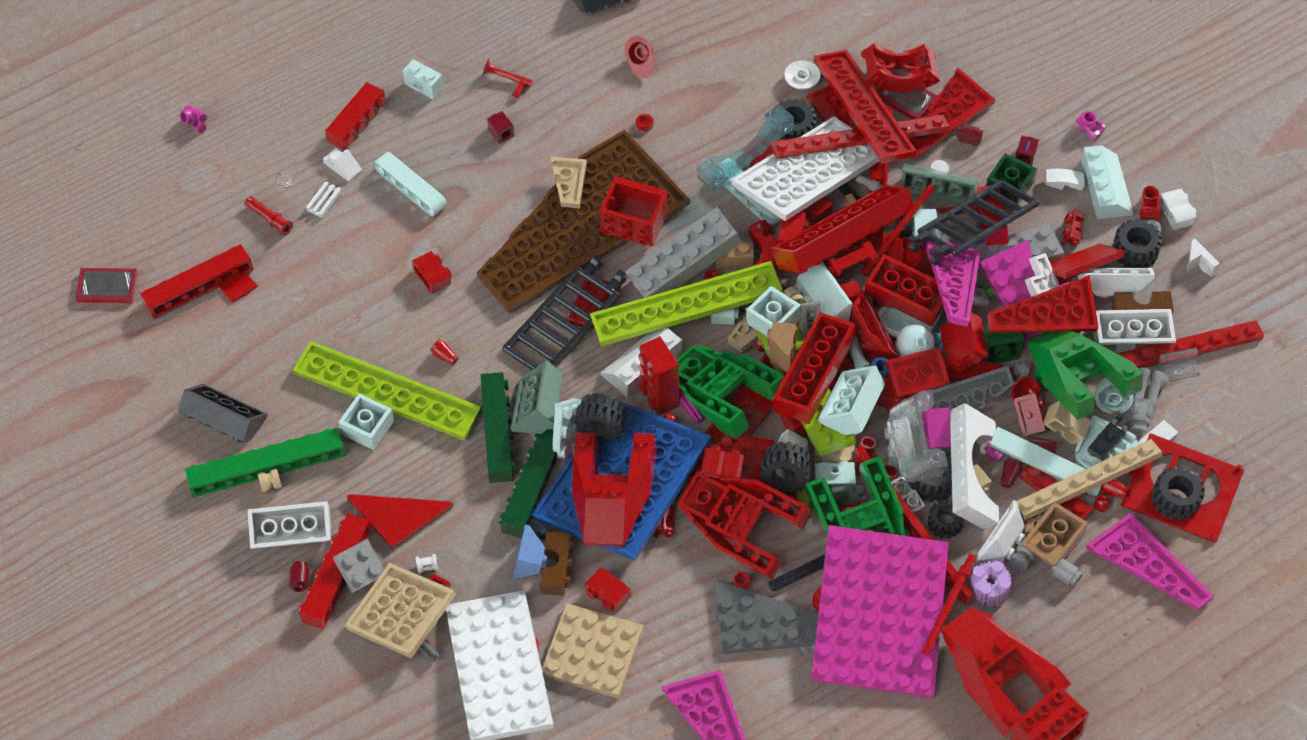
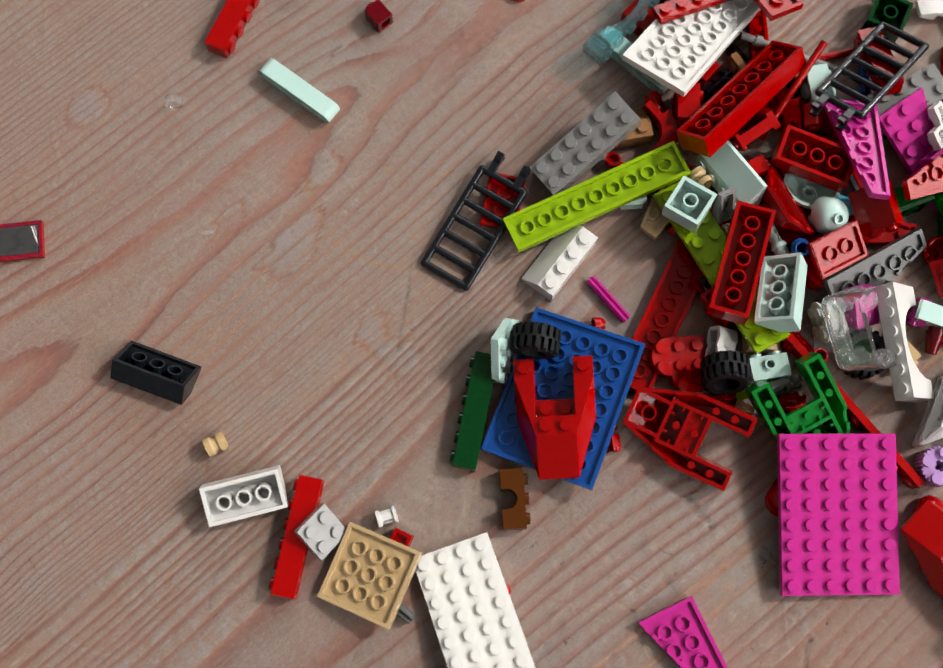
camera: 10 degrees left, 20 degrees up
(195, 117) = (70, 39): dark pink plate -> none
(196, 281) = (104, 228): red brick -> none
(238, 287) = (144, 223): red piece -> none
(245, 467) = (216, 418): green brick -> none
(274, 219) = (170, 146): red pin -> none
(299, 576) = (263, 547): dark red brick -> none
(321, 197) = (228, 106): white tile -> none
(343, 164) = (228, 75): white slope -> none
(366, 421) = (300, 367): light aqua brick -> none
(396, 517) = (348, 465): red tile -> none
(397, 392) = (315, 326): lime plate -> none
(432, 272) = (337, 187): red brick -> none
(442, 351) = (364, 276): red cone -> none
(496, 427) = (430, 354): dark green brick -> none
(530, 555) = (487, 497): medium blue slope -> none
(537, 399) = (466, 323): sand green slope -> none
(539, 530) = (491, 465): black tile -> none
(561, 238) = (480, 104): reddish brown wing -> none
(569, 179) = (457, 68): tan wing -> none
(592, 650) = (563, 588): tan plate -> none
(608, 590) = (568, 521): red brick -> none
(633, 211) = (528, 100): red container -> none
(658, 376) = (585, 286): red brick -> none
(712, 375) = (637, 273): green wedge -> none
(722, 462) = (662, 375): red brick -> none
(737, 579) = (692, 494): red hinge -> none
(759, 622) = (719, 534): dark grey wing -> none
(782, 345) = (706, 243): medium nougat slope -> none
(797, 573) = (750, 474): black axle -> none
(909, 496) = (842, 378): white slope -> none
(940, 165) = (812, 11): white tile -> none
(941, 528) = (870, 403): black tyre -> none
(947, 186) = (813, 29): sand green slope -> none
(963, 574) = (914, 463): red bar -> none
(1021, 369) = (928, 225): light grey plate -> none

